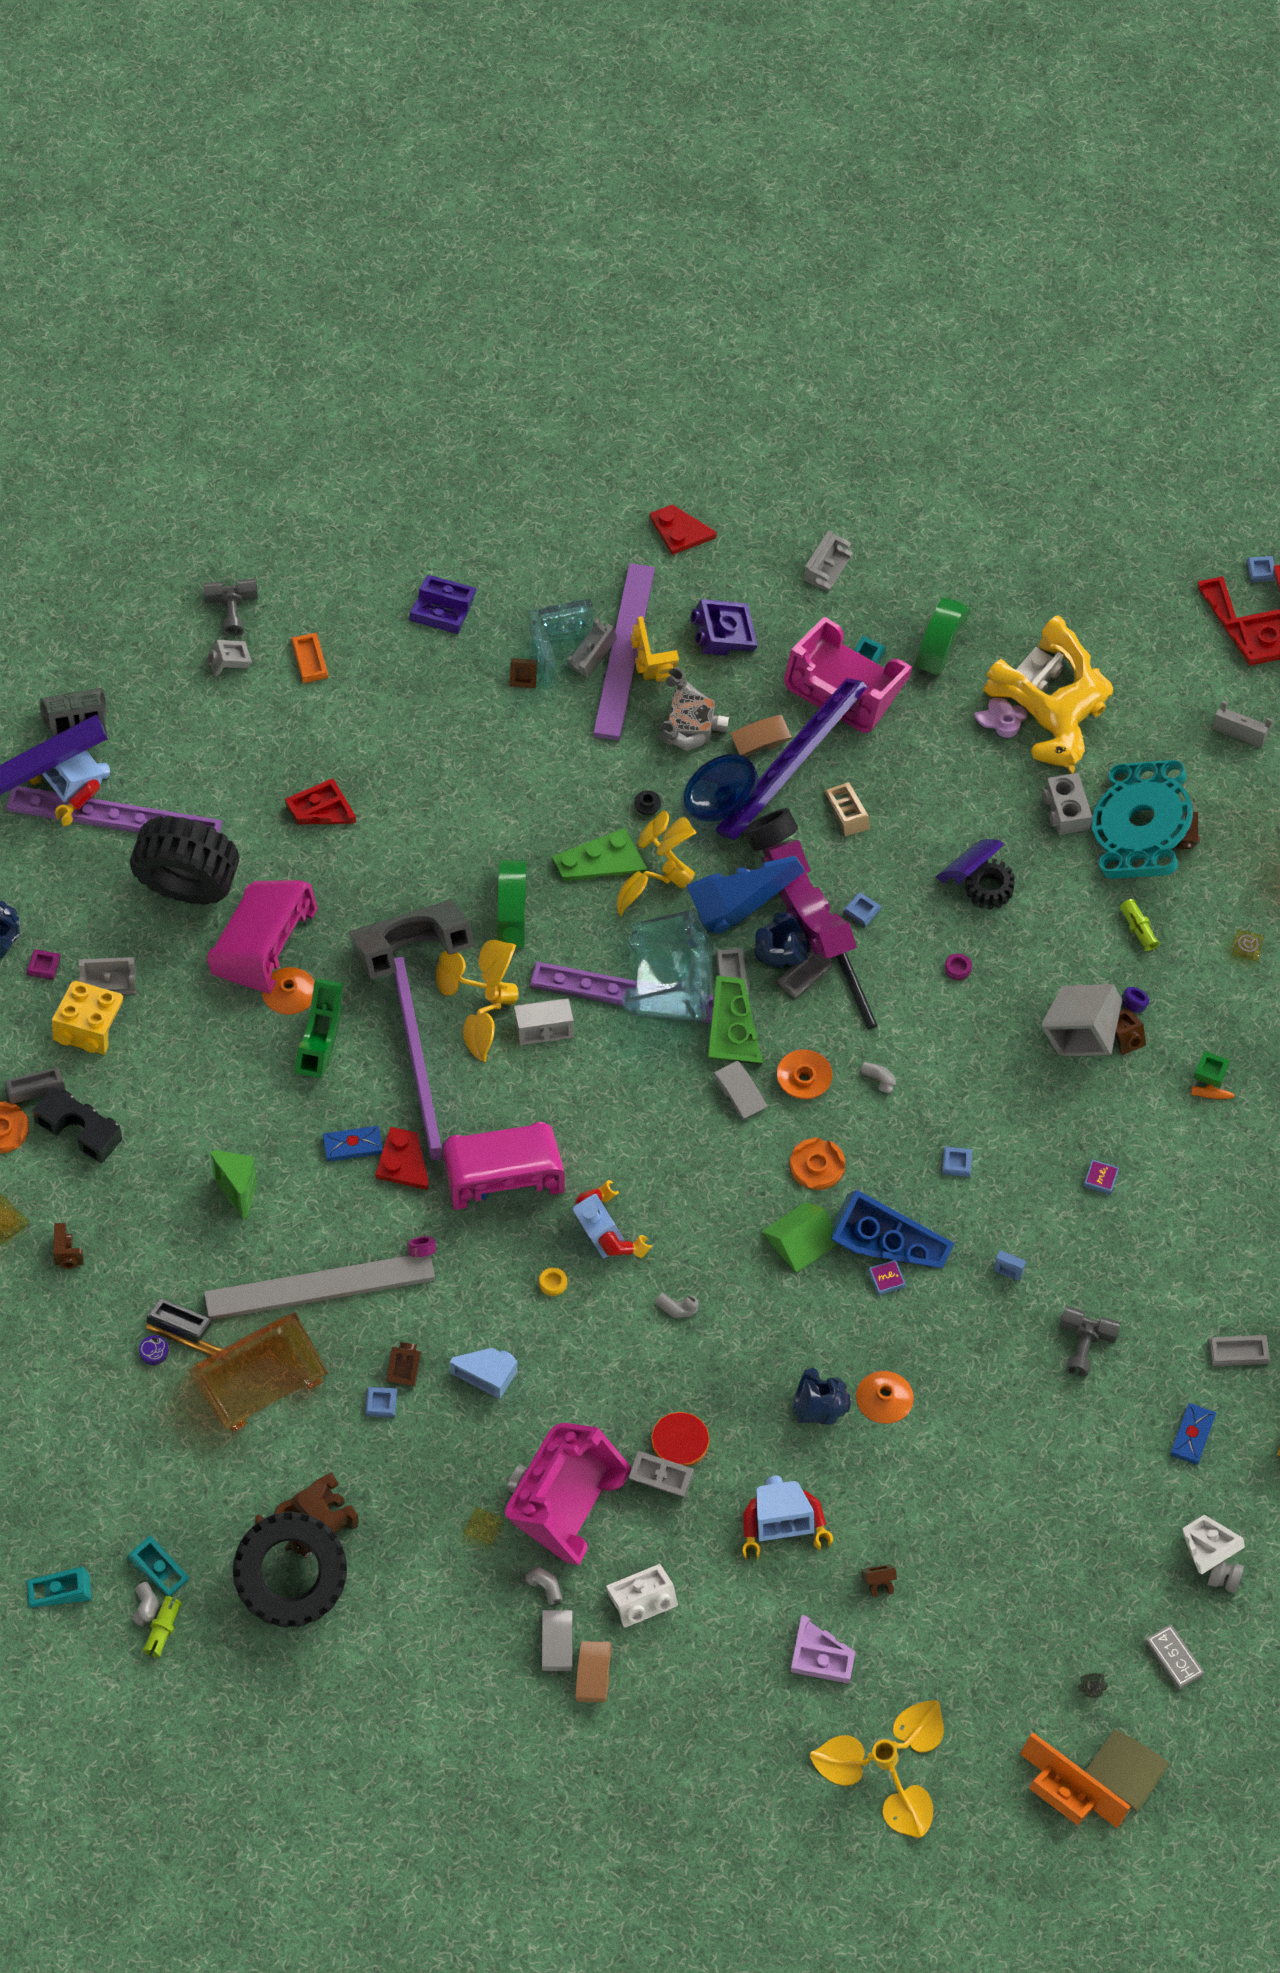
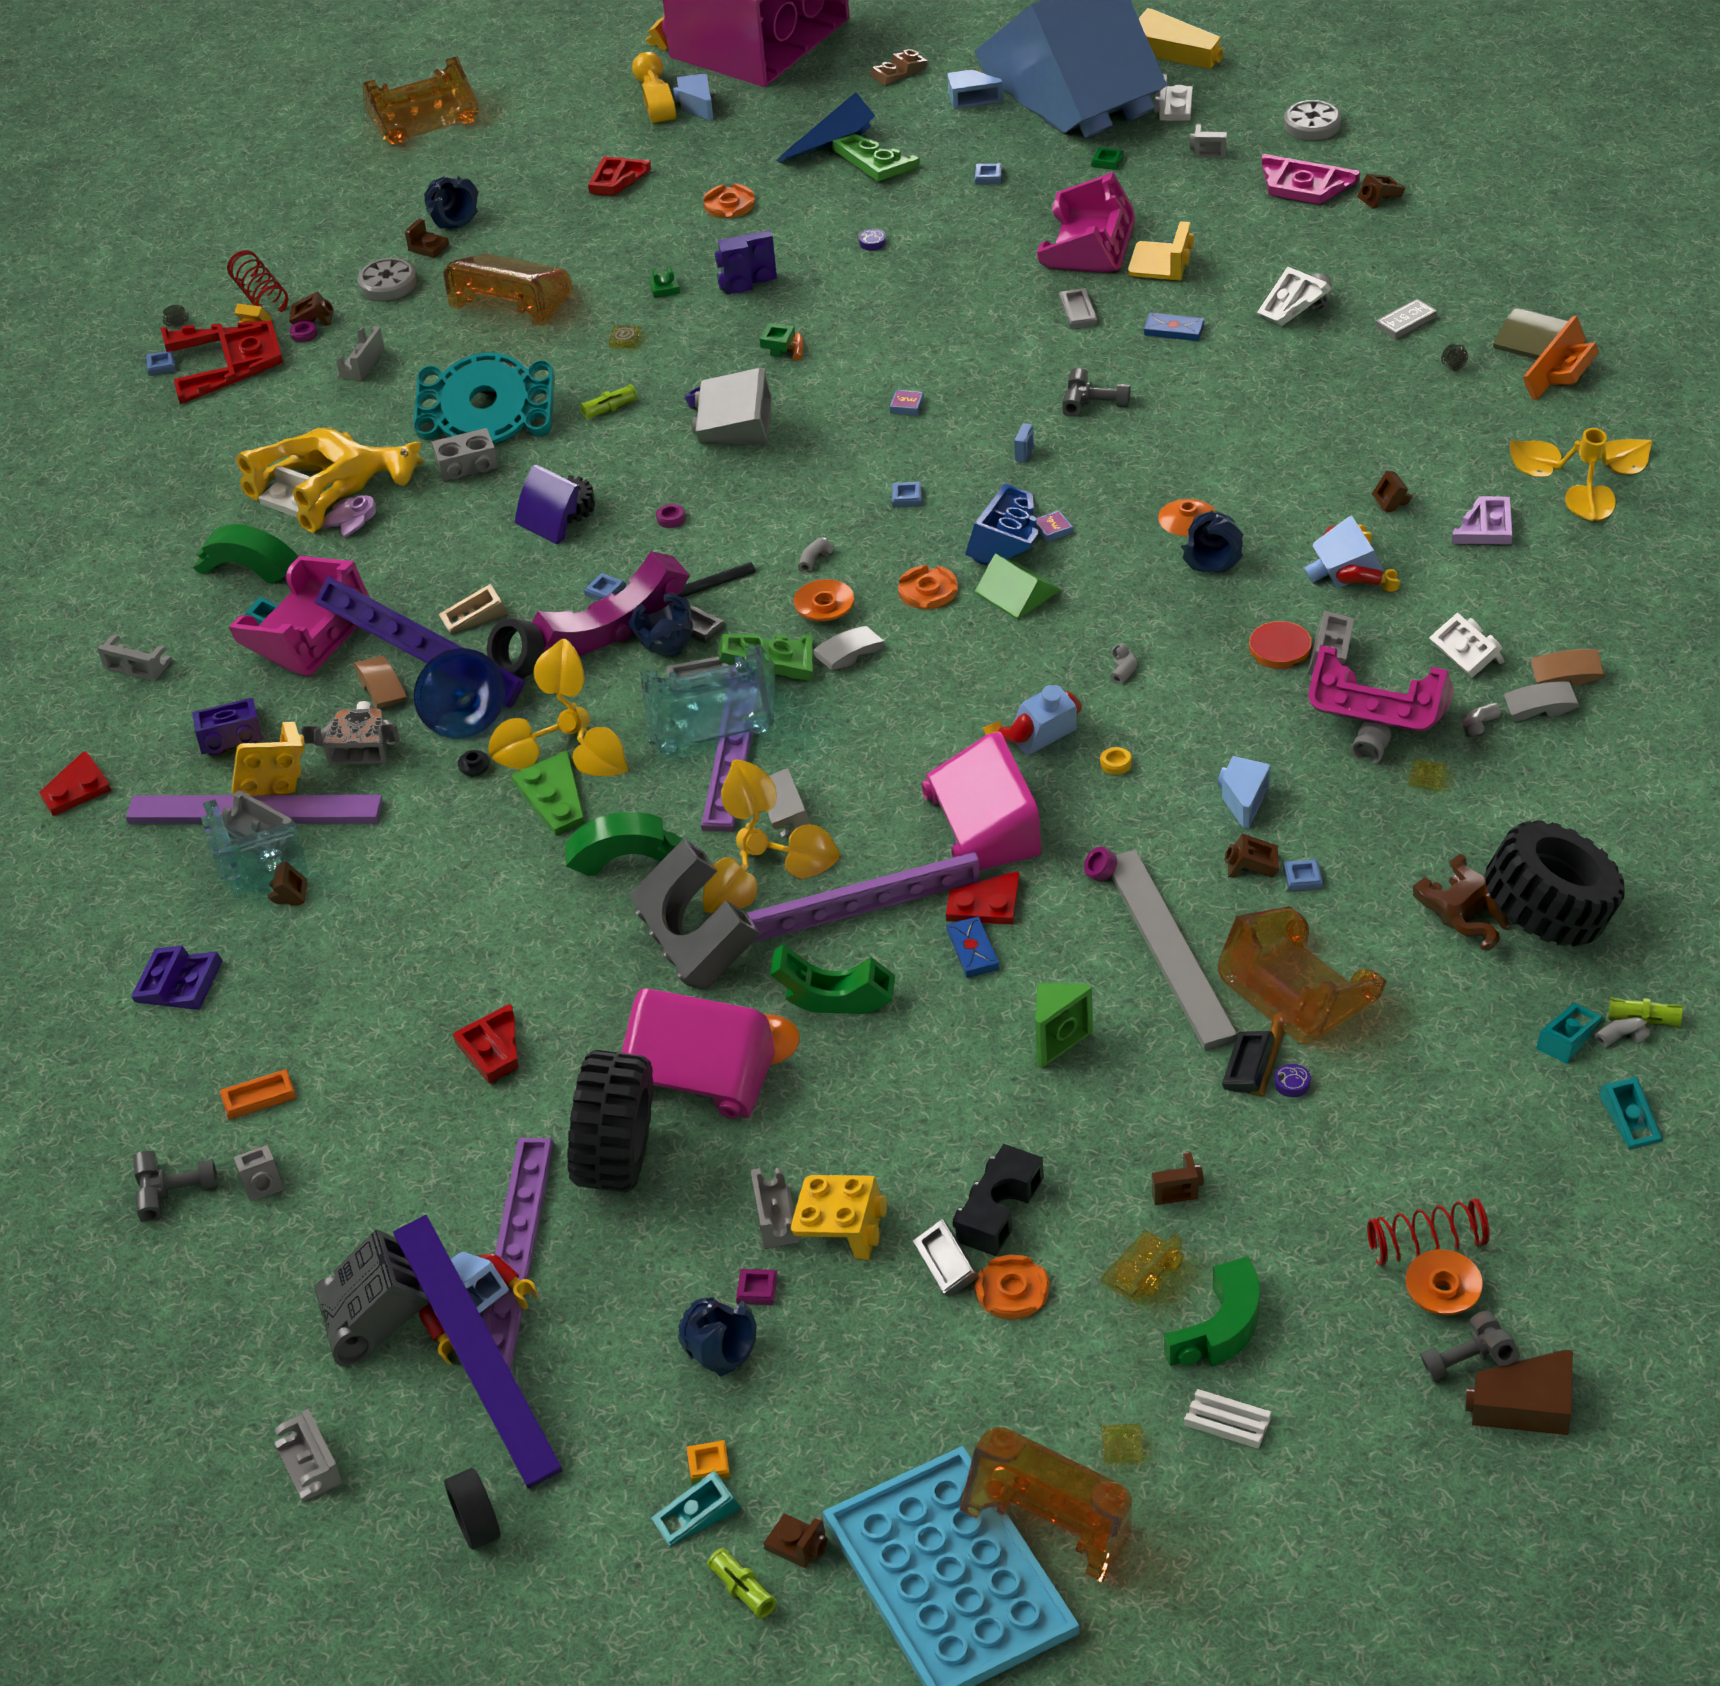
camera: 90 degrees left, 15 degrees down
(732, 898) = (611, 660): blue wedge -> none

